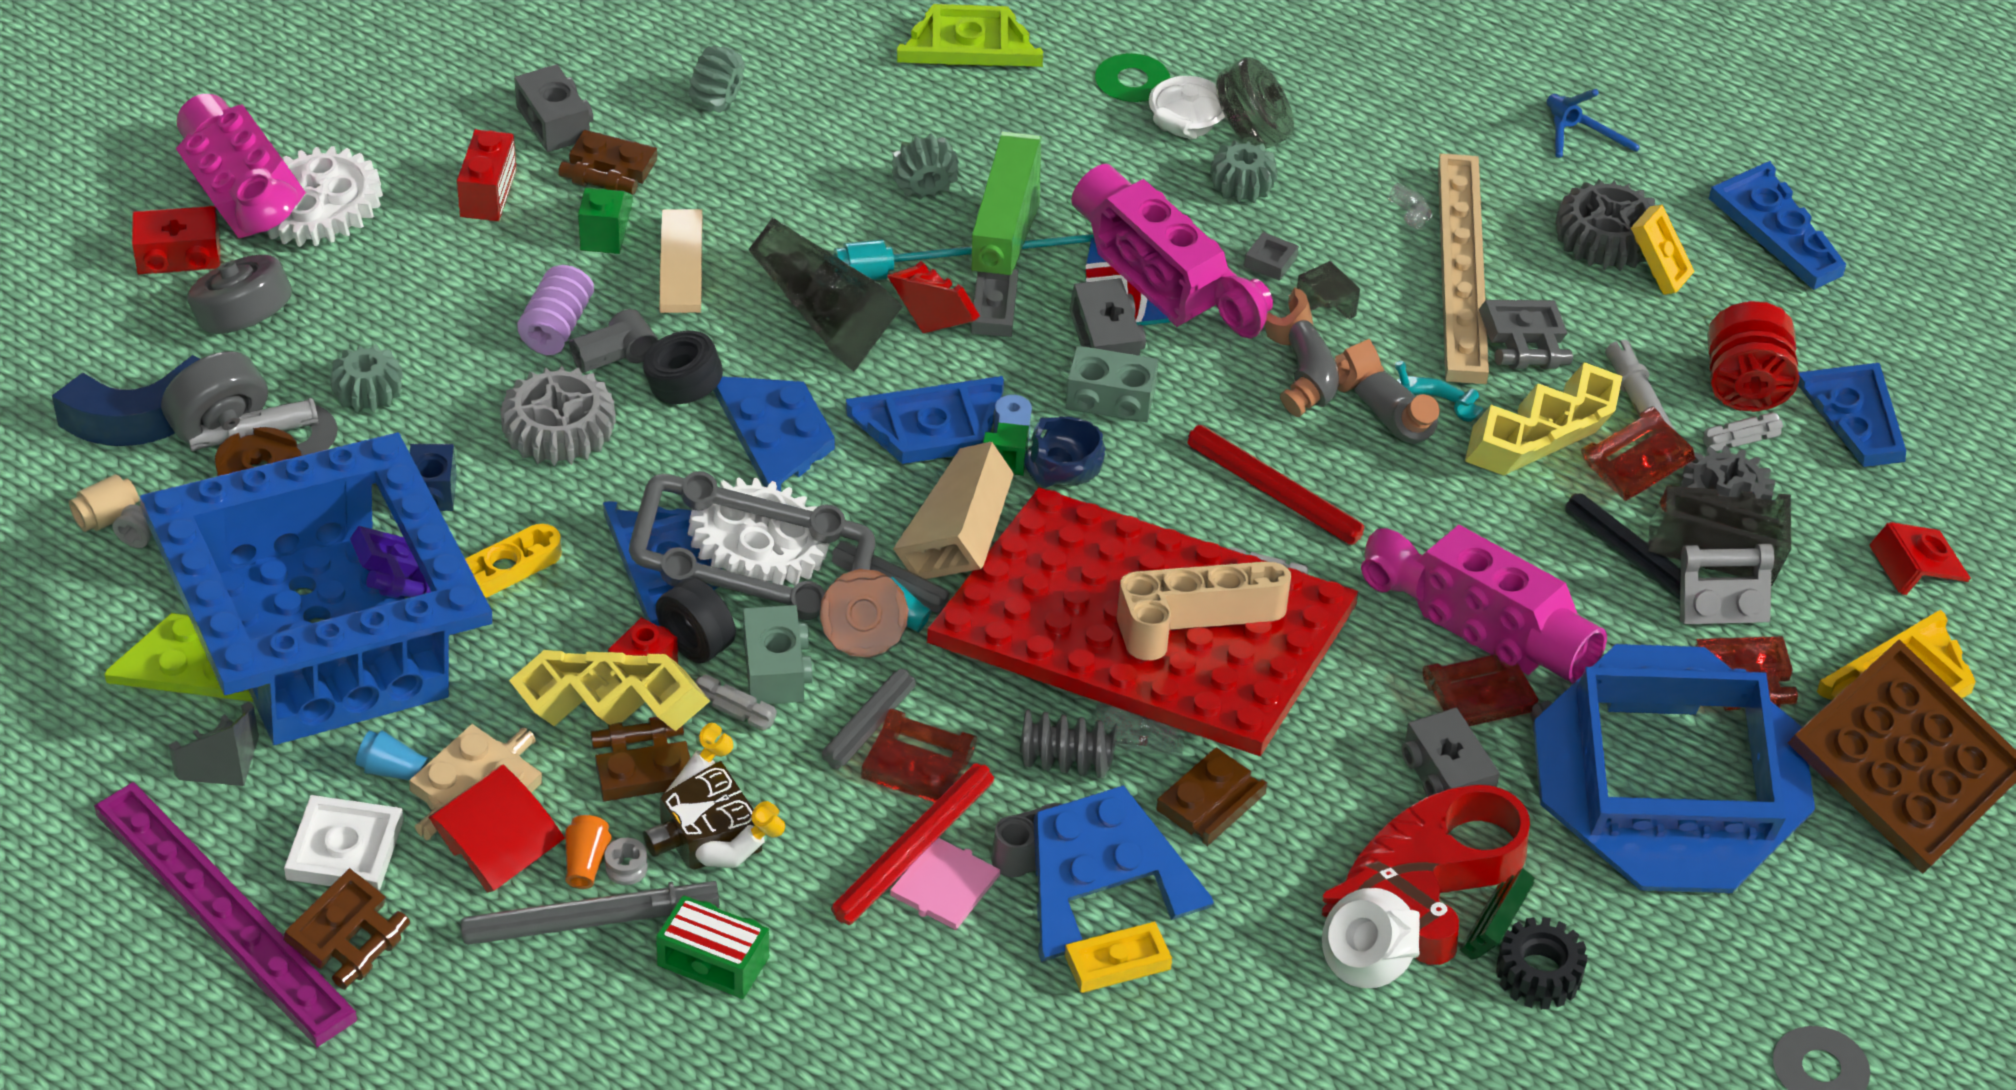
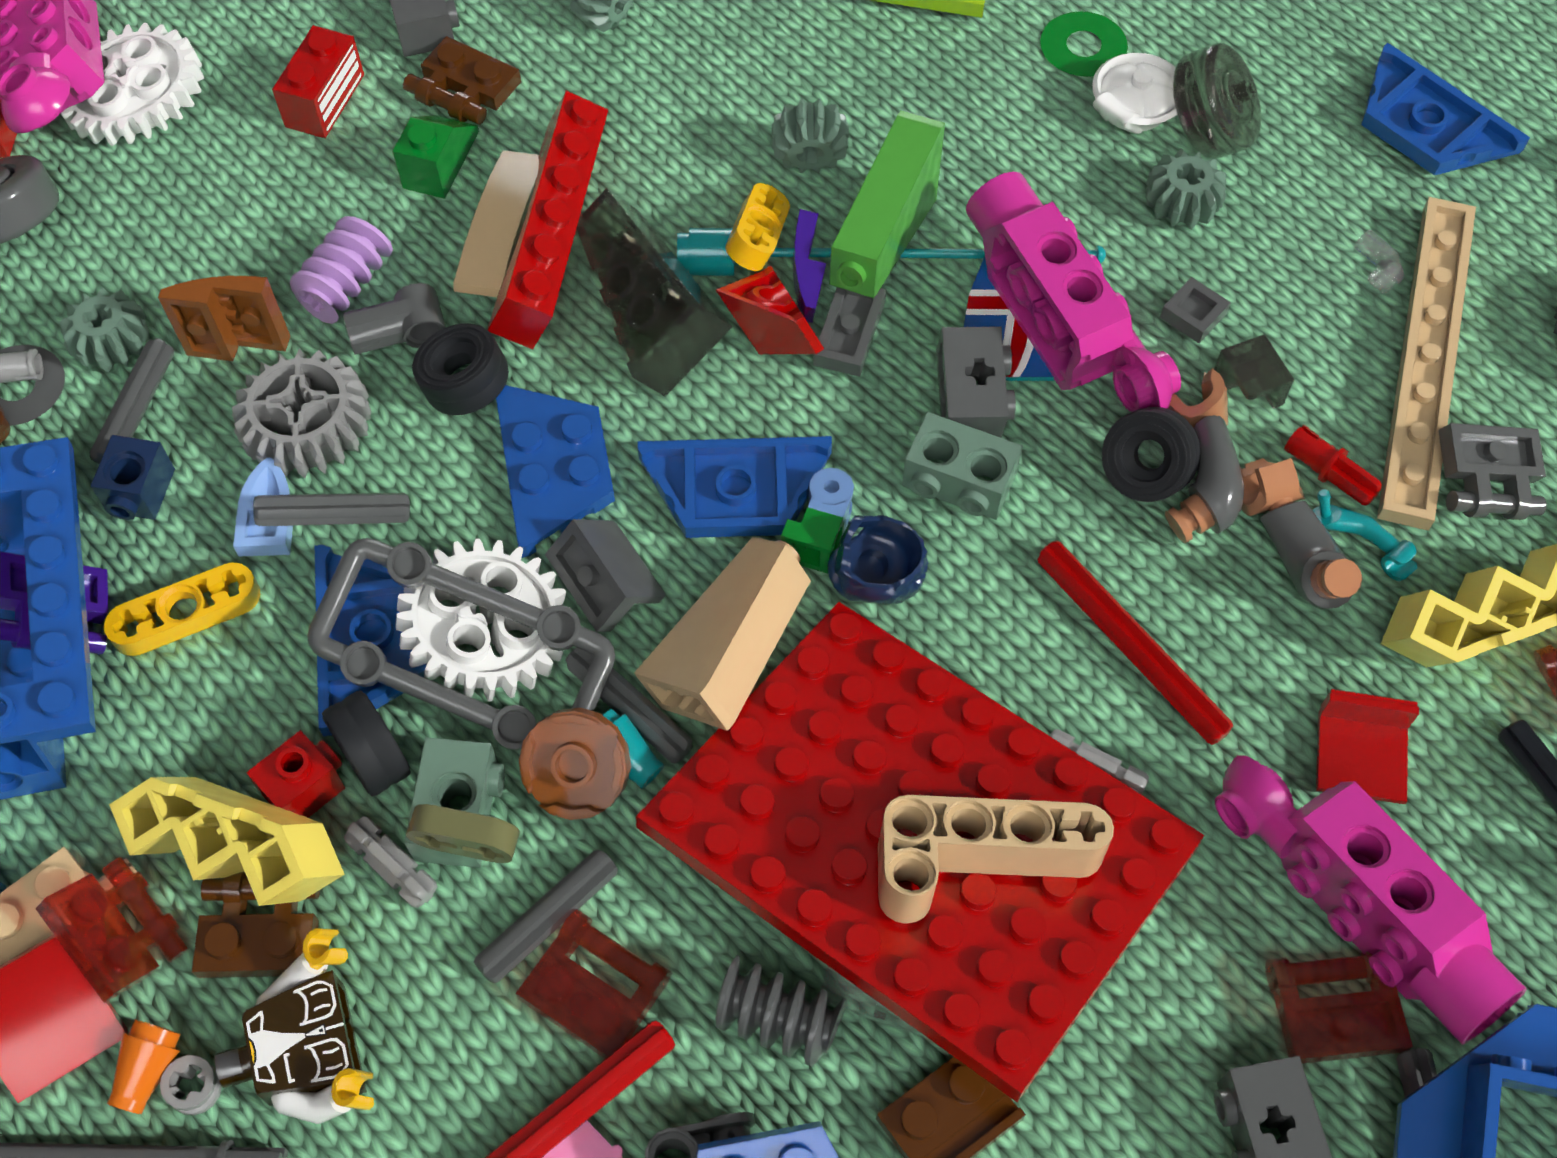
camera: 15 degrees right, 15 degrees up
(411, 411) = (135, 395): none -> dark grey axle
(475, 350) = (224, 313): none -> dark orange slope
(536, 763) = (100, 937): none -> clear red plate
(551, 488) = (255, 539): none -> light blue plate
(605, 475) = (330, 509): none -> dark grey axle
(731, 280) = (544, 245): none -> red arch
(798, 655) = (463, 833): none -> olive beam
(835, 484) = (602, 571): none -> dark grey panel
(901, 235) = (758, 227): none -> yellow beam
(948, 262) = (807, 273): none -> dark purple slope
(1283, 356) = (1122, 461): none -> black tyre
(1404, 348) = (1333, 465): none -> red axle
(1432, 98) = (1434, 119): none -> blue wing
(1465, 506) = (1366, 743): none -> red piece

